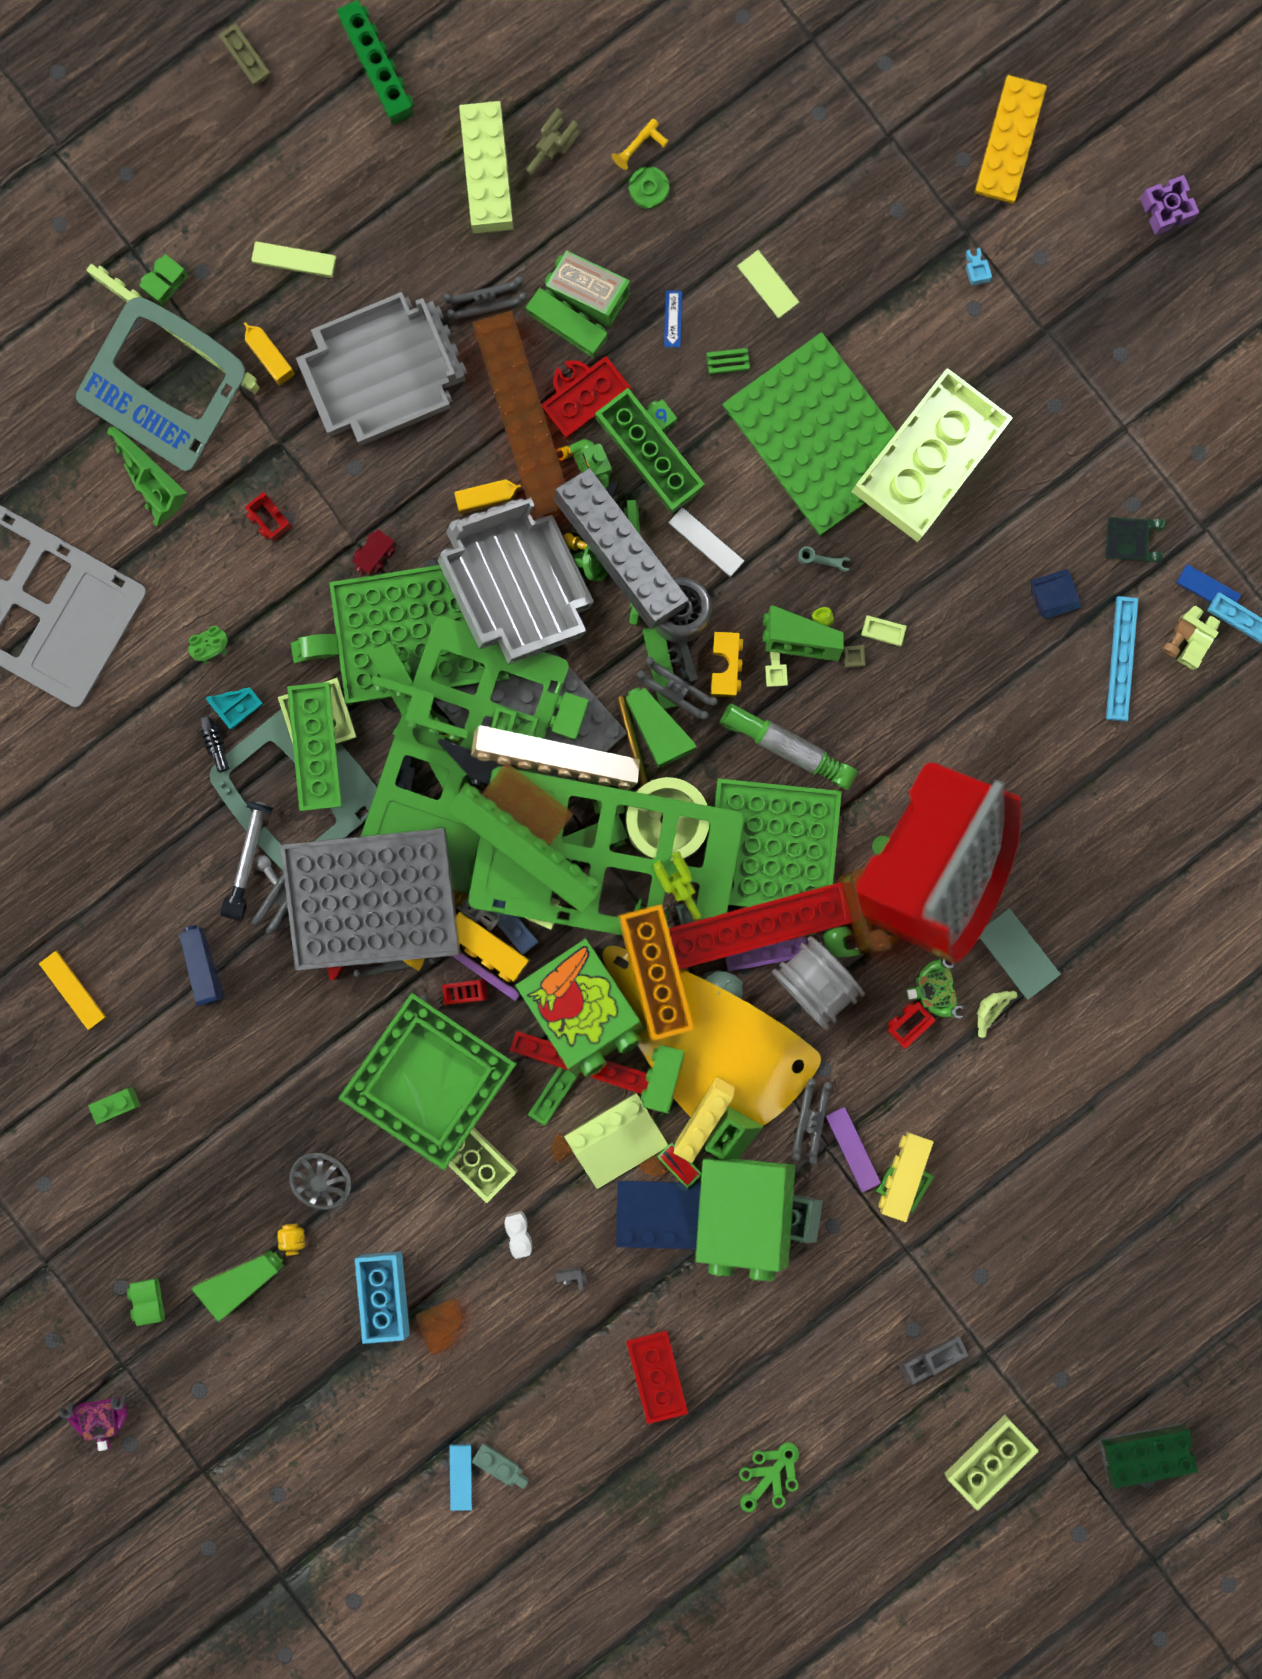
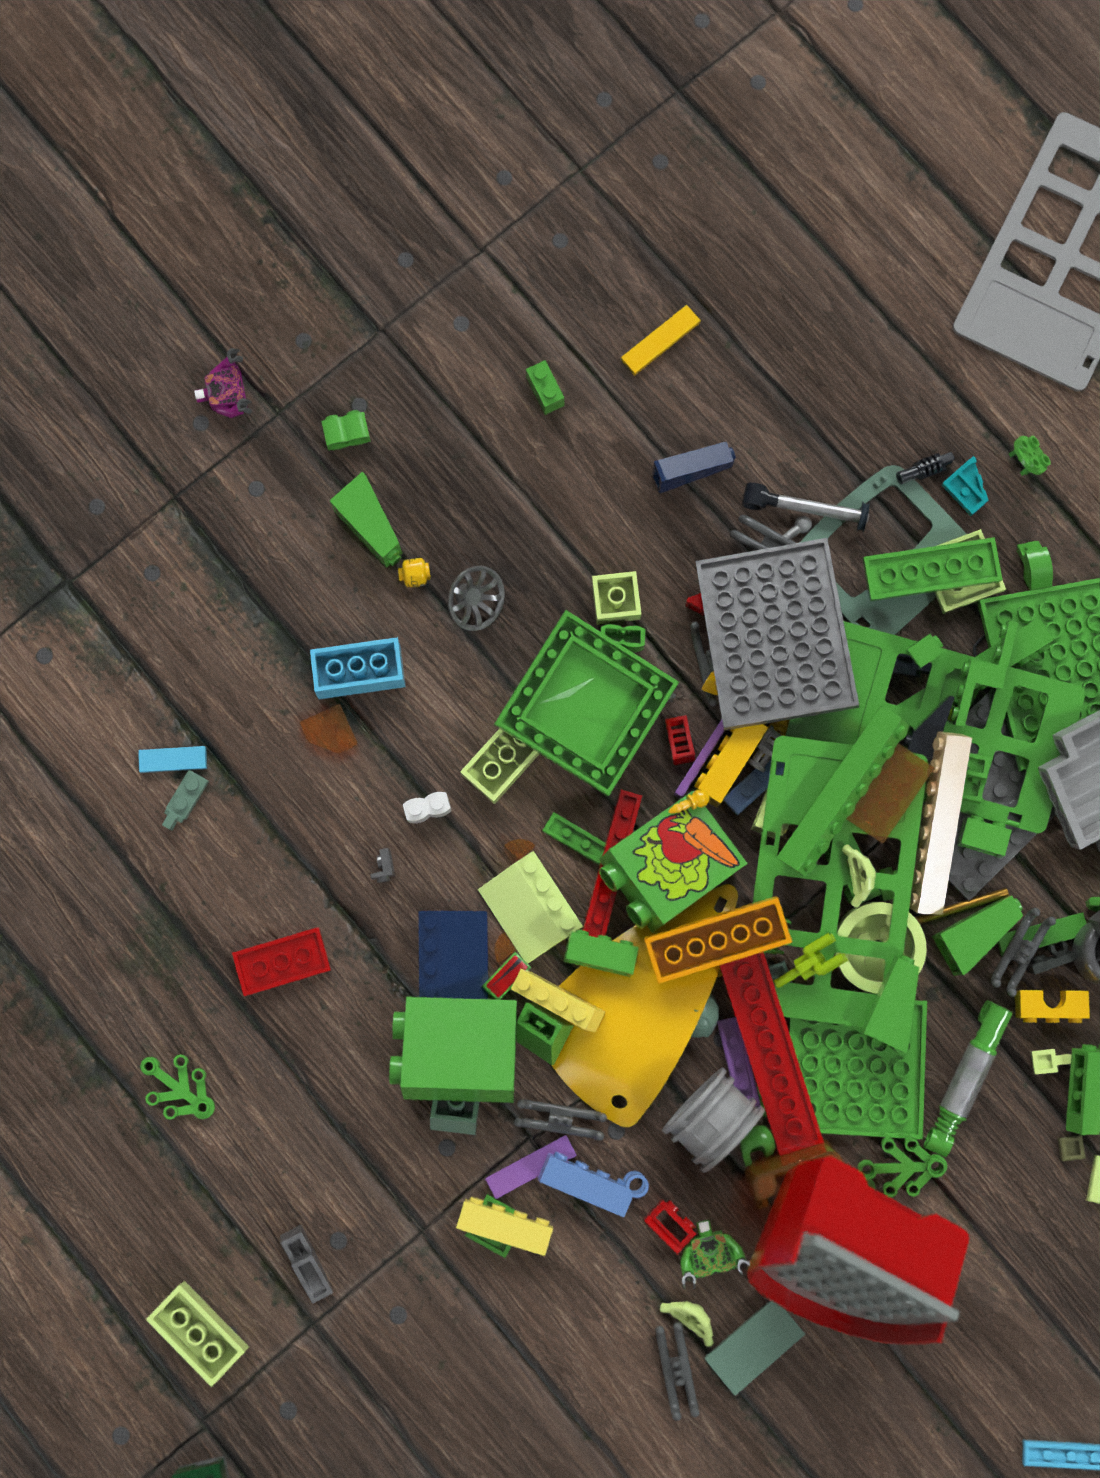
camera: 85 degrees right, 5 degrees down
(326, 1046) = (616, 597): none -> yellowish green brick
(366, 1036) = (629, 637): none -> bright green brick
(394, 761) = (925, 650): none -> bright green brick
(523, 980) = (698, 799): none -> yellow bar
(601, 834) = (861, 874): none -> yellowish green piece
(723, 812) = (894, 1005): none -> bright green slope
(867, 808) = (905, 1167): none -> bright green plant
(872, 1095) = (590, 1185): none -> medium blue hinge
(1037, 1024) = (677, 1371): none -> dark grey piece

